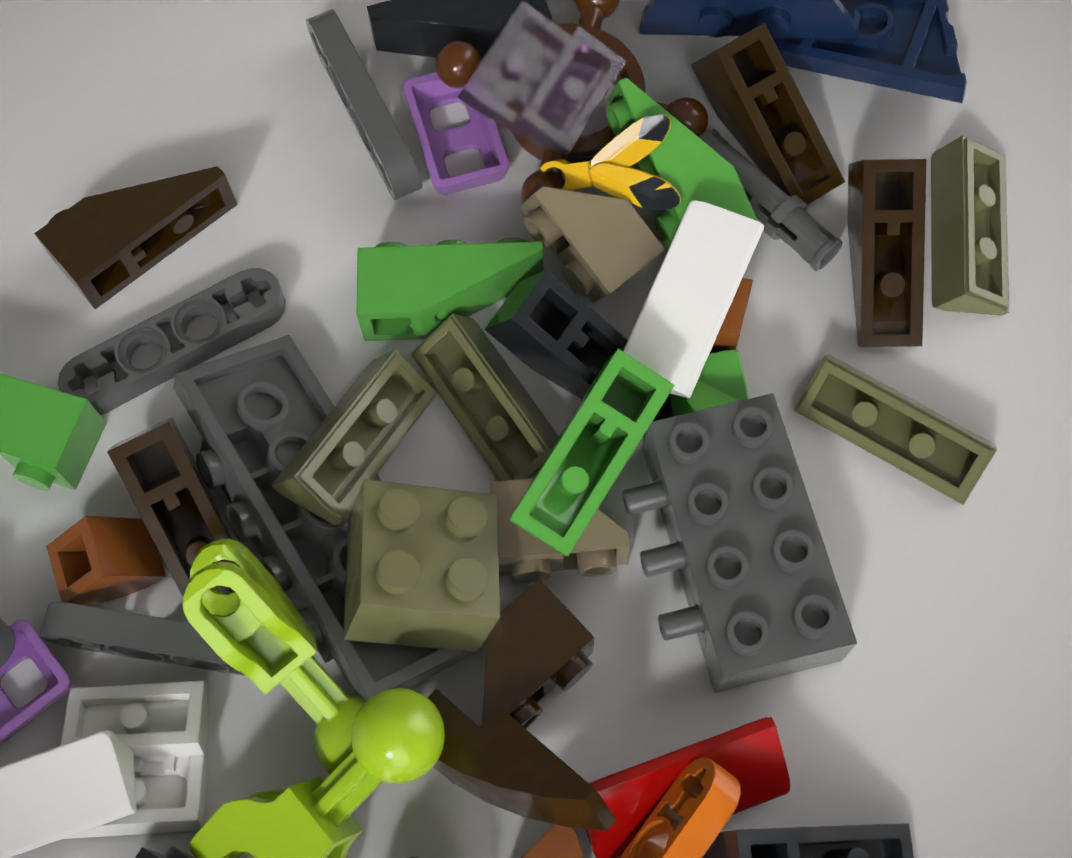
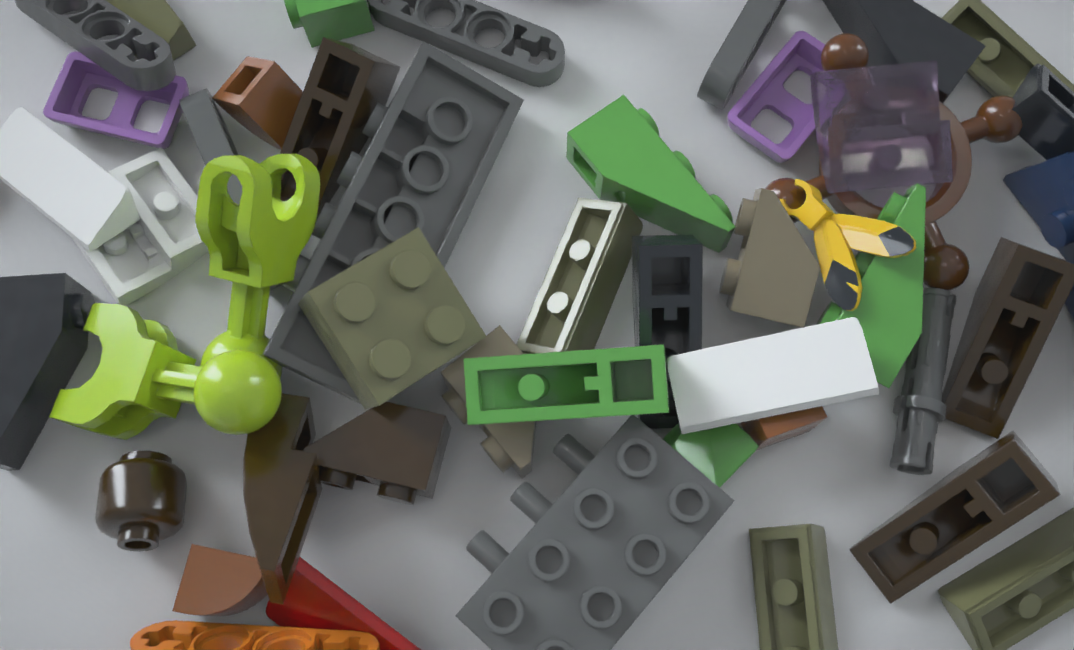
camera: 55 degrees right, 5 degrees up
(356, 437) = (473, 204): olive slope -> none

